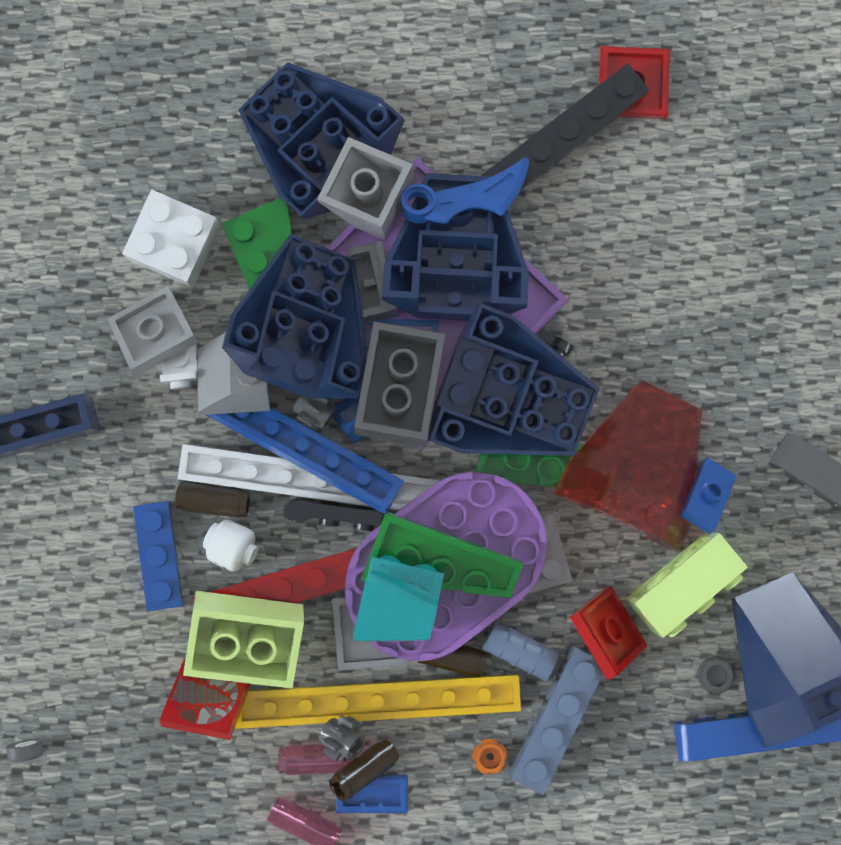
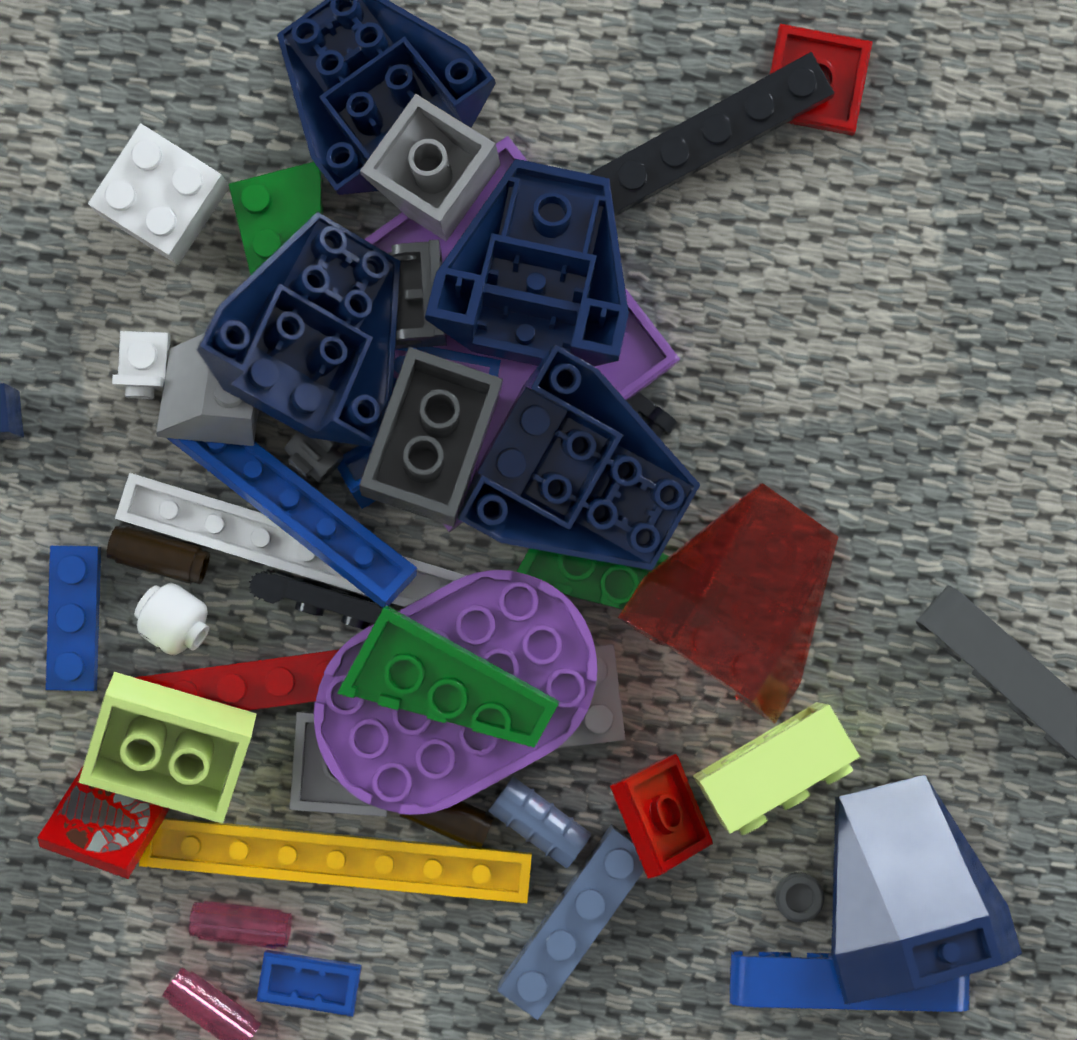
camera: 10 degrees right, 0 degrees up
(152, 331) = (112, 314): light grey plate -> none
(342, 738) = (279, 901): dark grey gear -> none
(363, 770) = (302, 948): dark brown piece -> none
(398, 601) = (379, 728): teal piece -> none
(485, 765) = (474, 971): orange plate -> none
(490, 194) = (595, 200): blue piece -> none
(708, 496) = (826, 653): blue plate -> none

